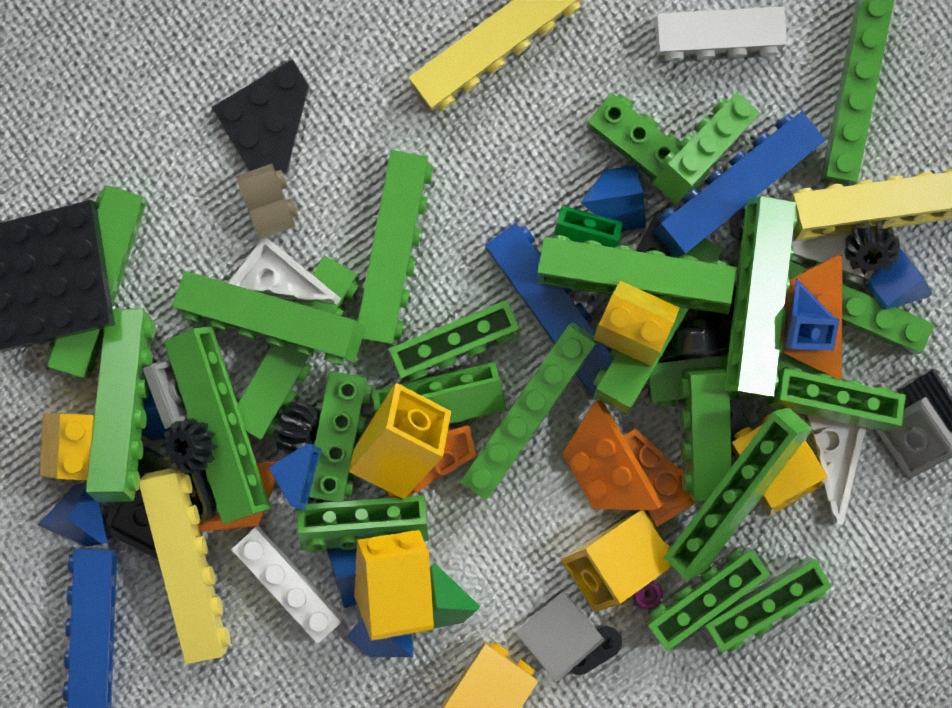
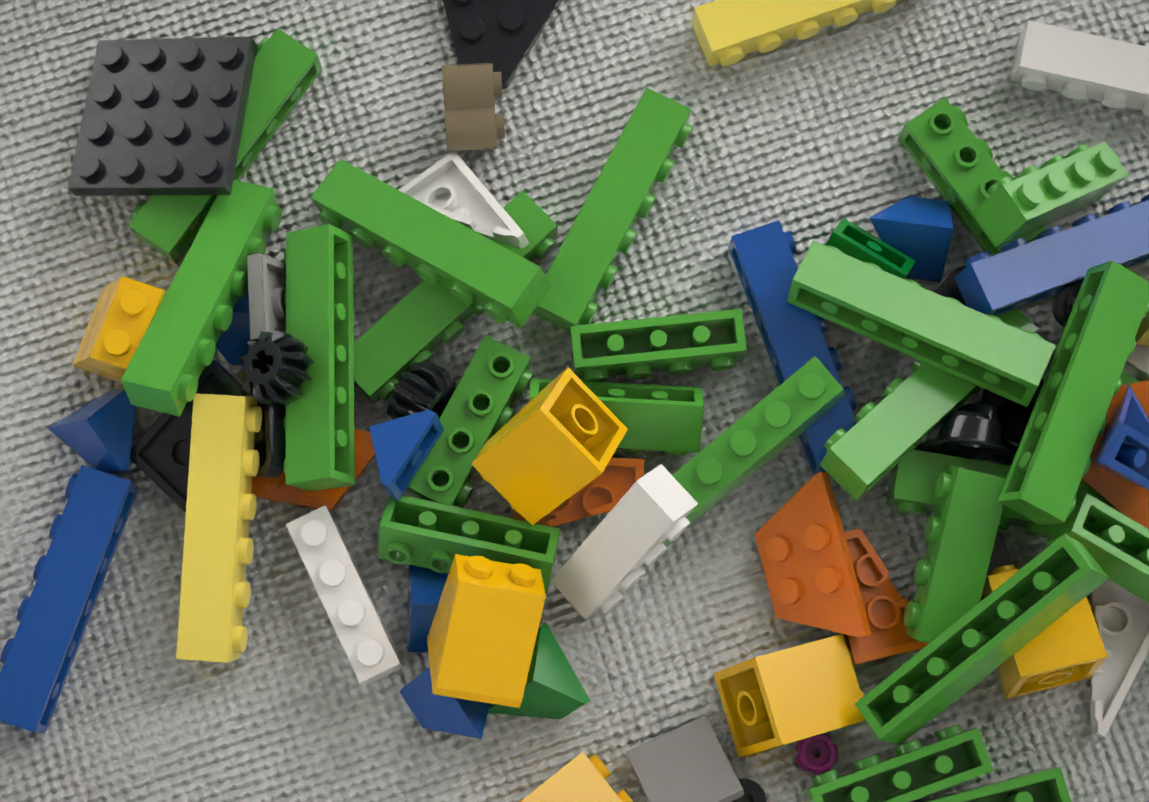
camera: 15 degrees right, 10 degrees down
(472, 496) = (624, 541): none -> white brick
(636, 323) = (903, 376): yellow slope -> none

